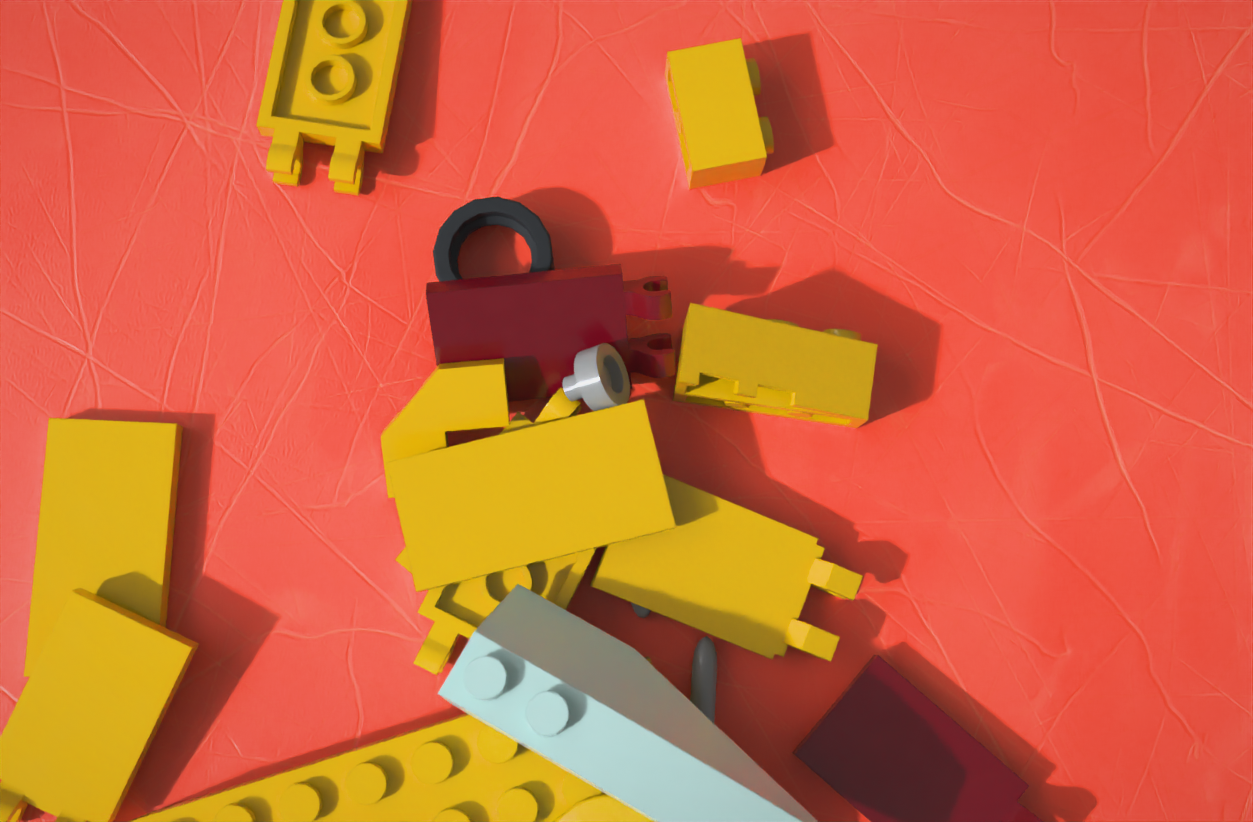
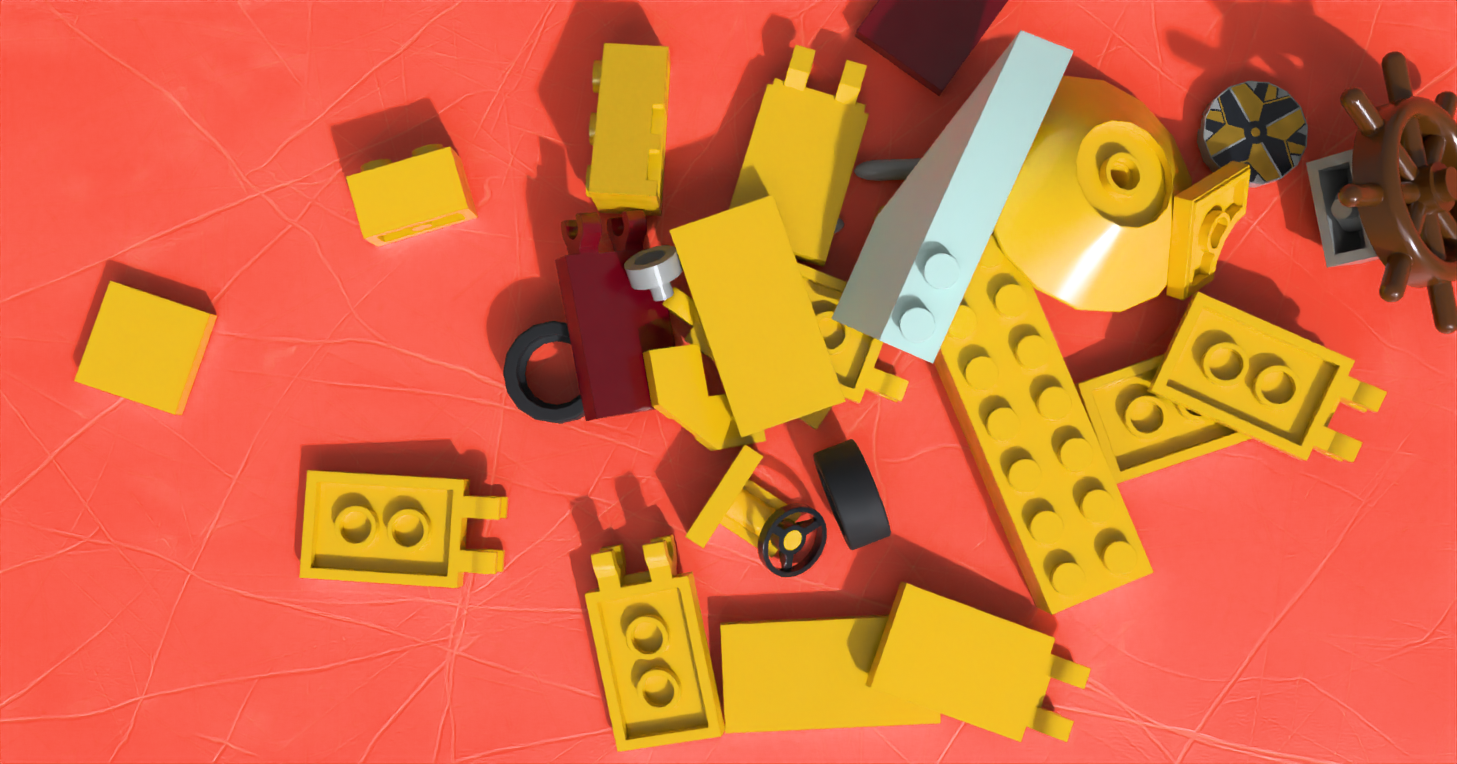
camera: 90 degrees left, 5 degrees up
(158, 342) = (652, 650): none -> yellow tile
(297, 481) = (759, 518): none -> yellow piece
(306, 590) = (852, 494): none -> black tyre

